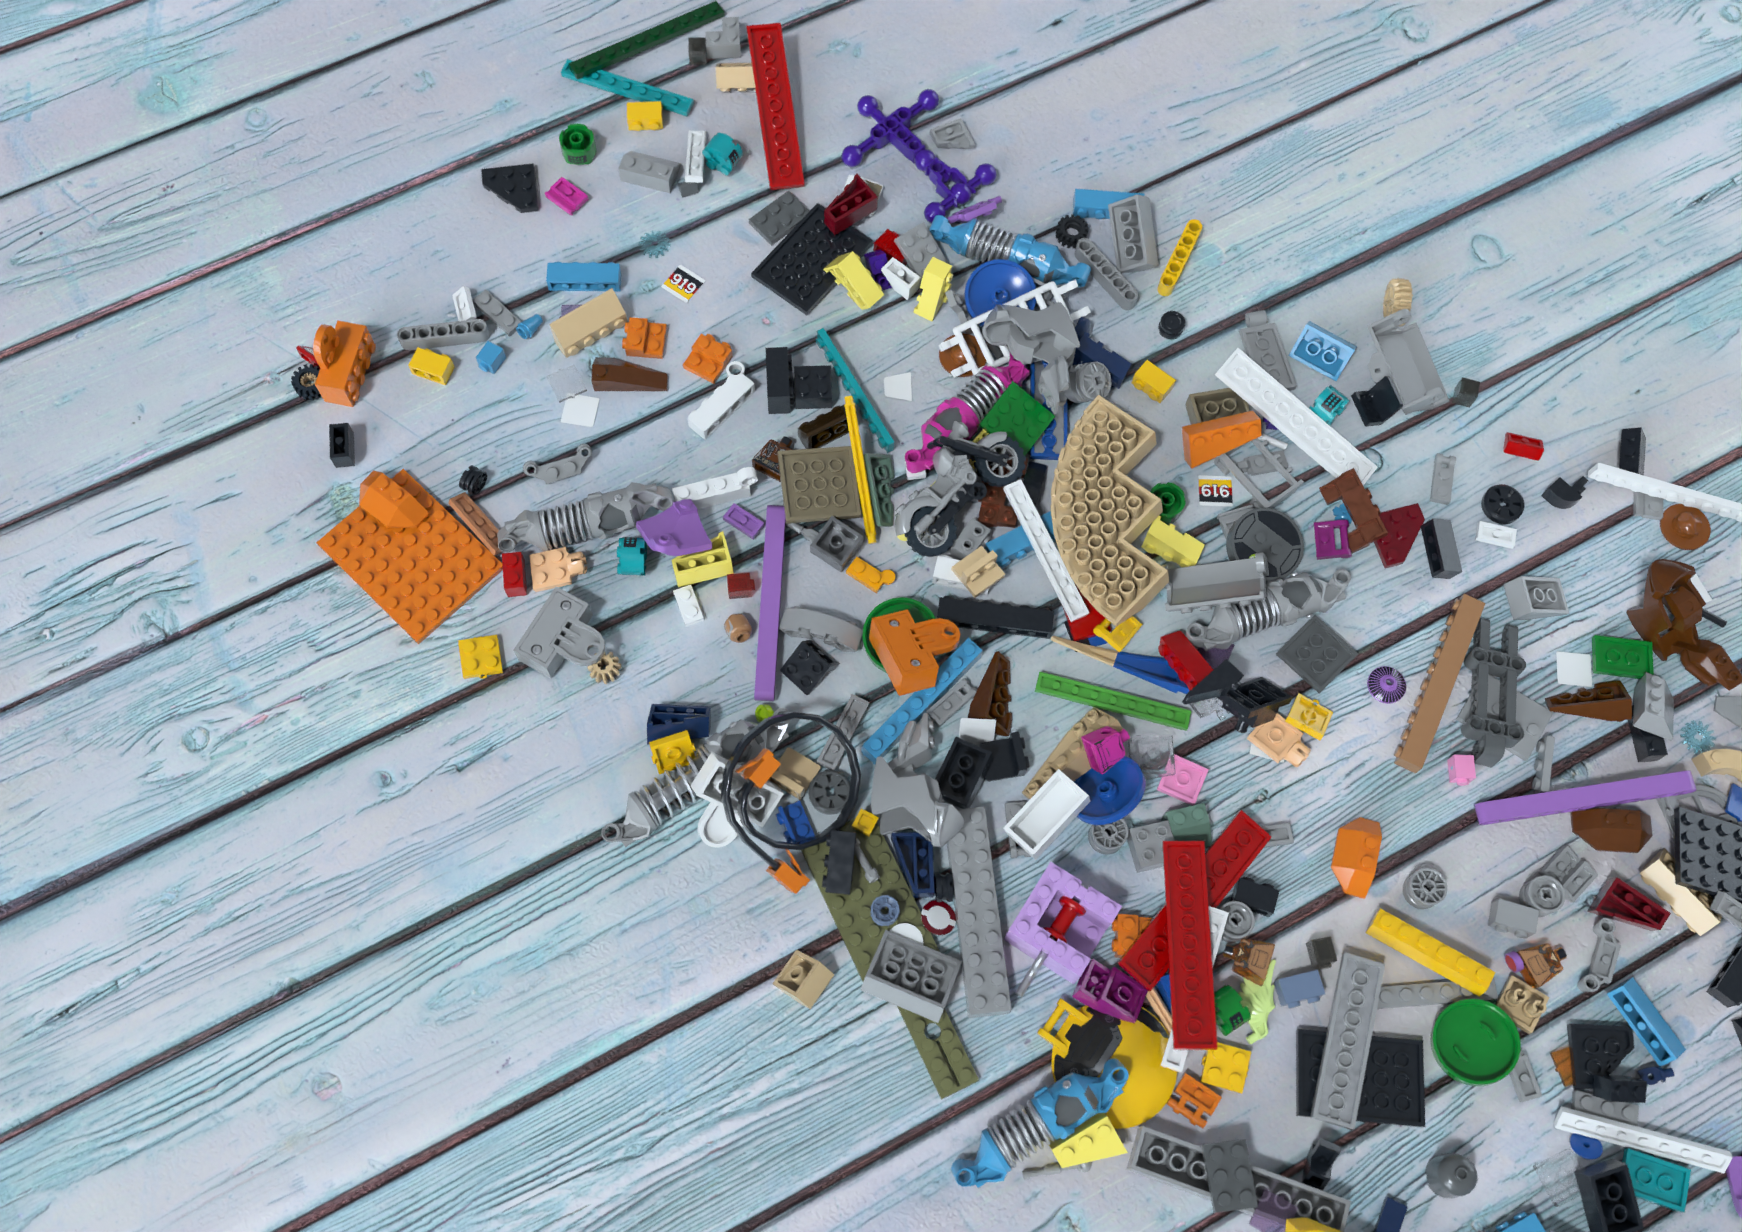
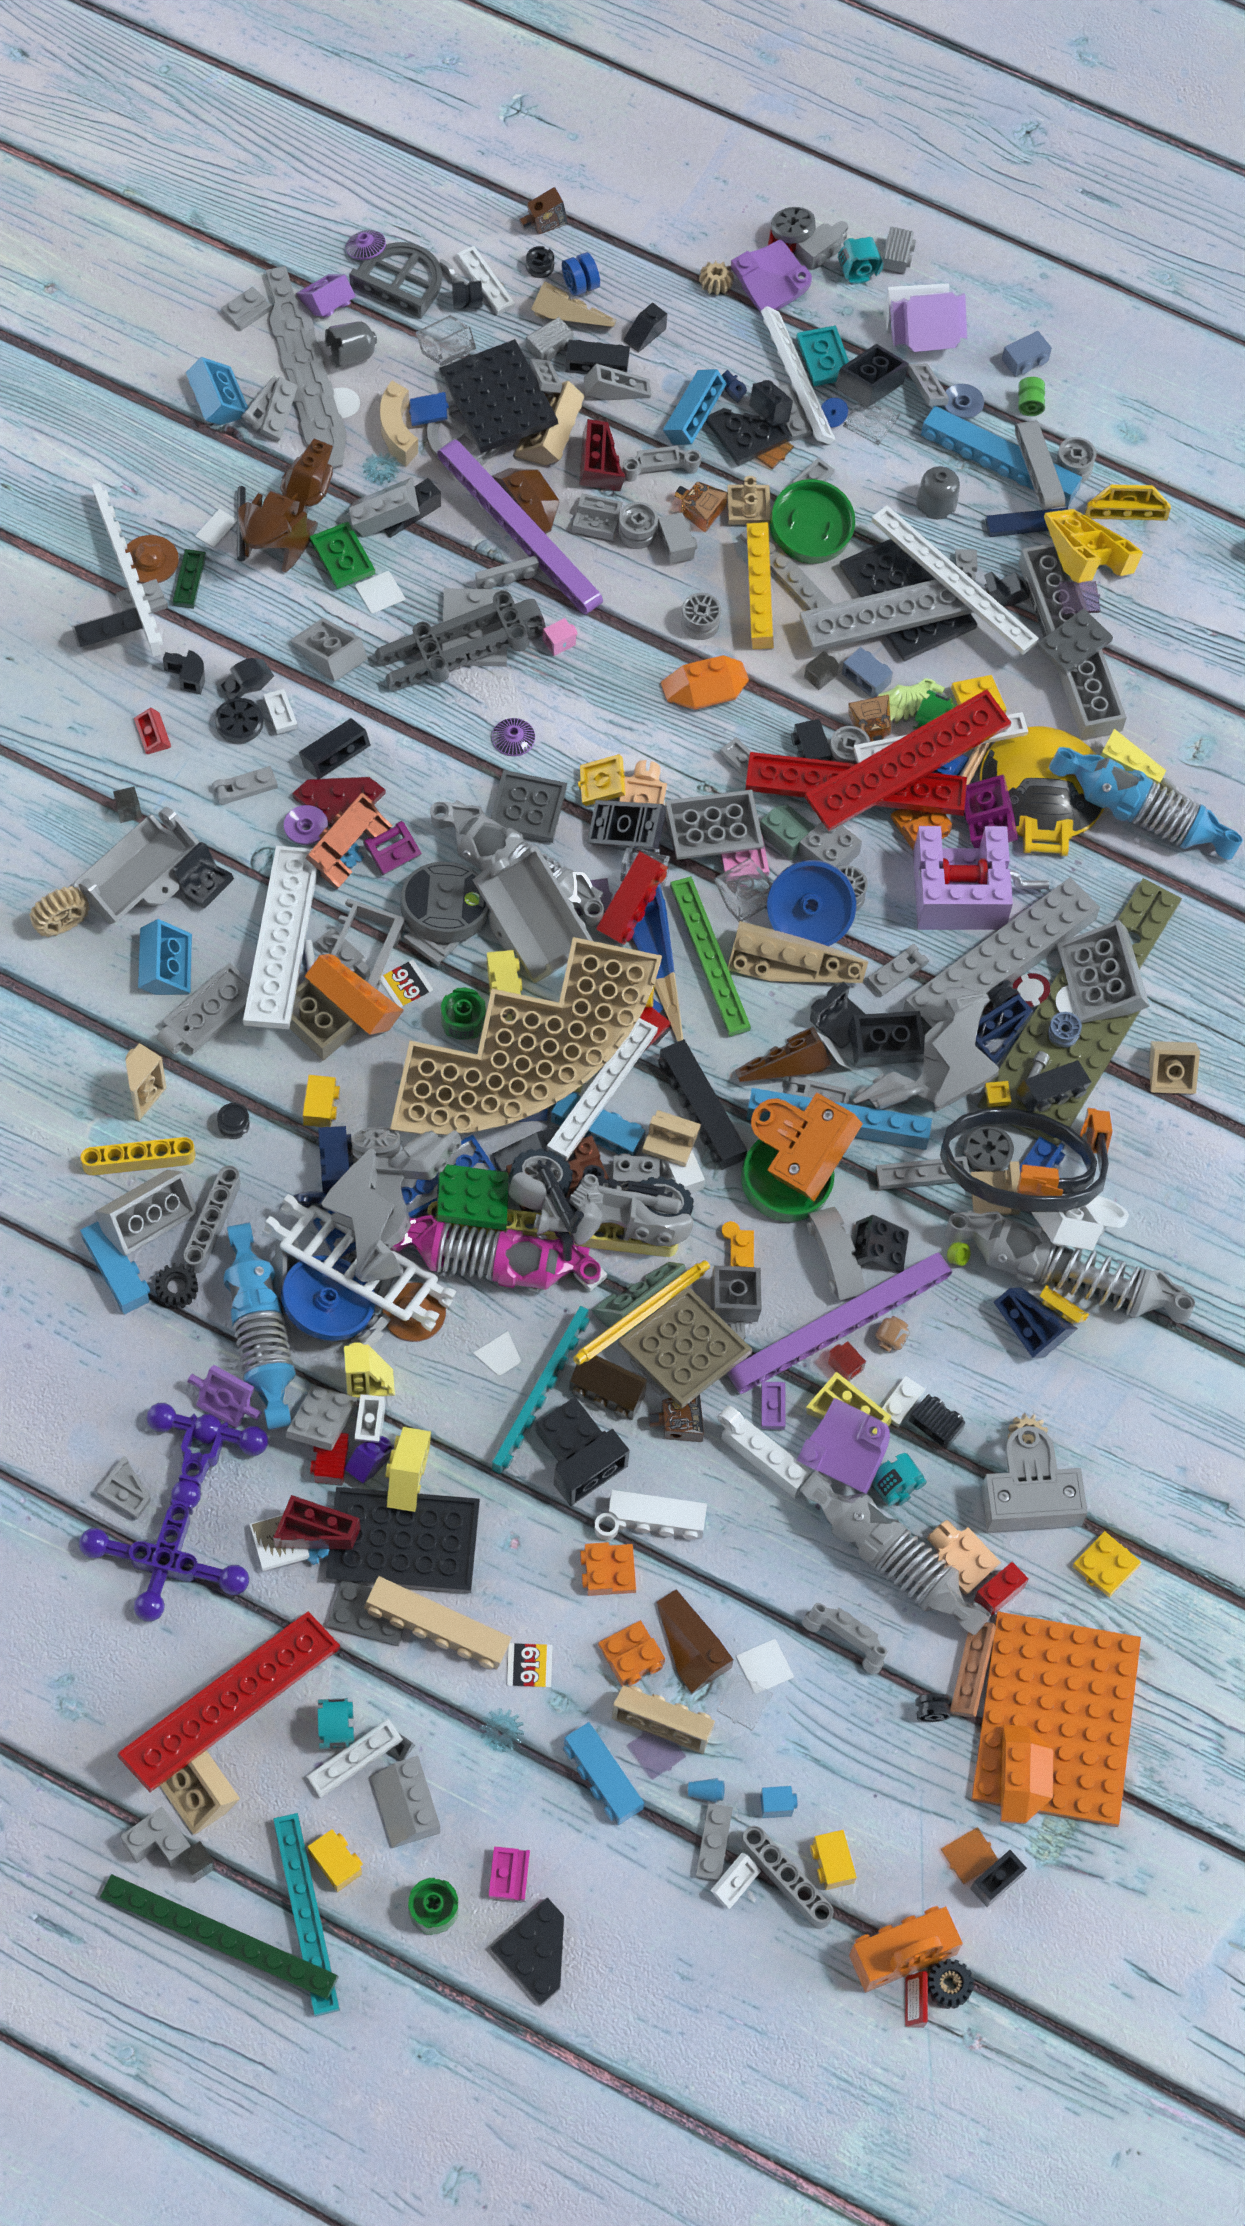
camera: 125 degrees left, 5 degrees down
(373, 447) = (969, 1855): none -> clear orange piece
(656, 615) = (937, 1421): none -> black brick
(742, 240) = (437, 1623): none -> tan brick
(1047, 814) = (877, 936): white piece -> none
(1104, 747) = (772, 923): dark pink torso -> none
(1197, 1095) = (1020, 701): orange plate -> none
(1216, 684) = (650, 845): black slope -> none
(1219, 767) = (713, 824): none -> light grey slope
(1230, 275) = (145, 1078): none -> tan slope
(1329, 404) = (240, 918): teal brick -> none
(1348, 1114) = (955, 580): none -> white plate
(1368, 1154) = (967, 561): none -> light grey plate
(1388, 489) = (303, 817): none -> medium lavender dish
(1439, 683) = (482, 690): medium nougat brick -> none
(1514, 961) = (714, 523): medium lavender tile -> none
(1538, 526) = (245, 675): none -> black brick
(1604, 702) = (407, 557): reddish brown wedge -> none
(1652, 541) = (189, 578): none -> dark green tile
(1701, 973) = (615, 384): none -> light grey slope

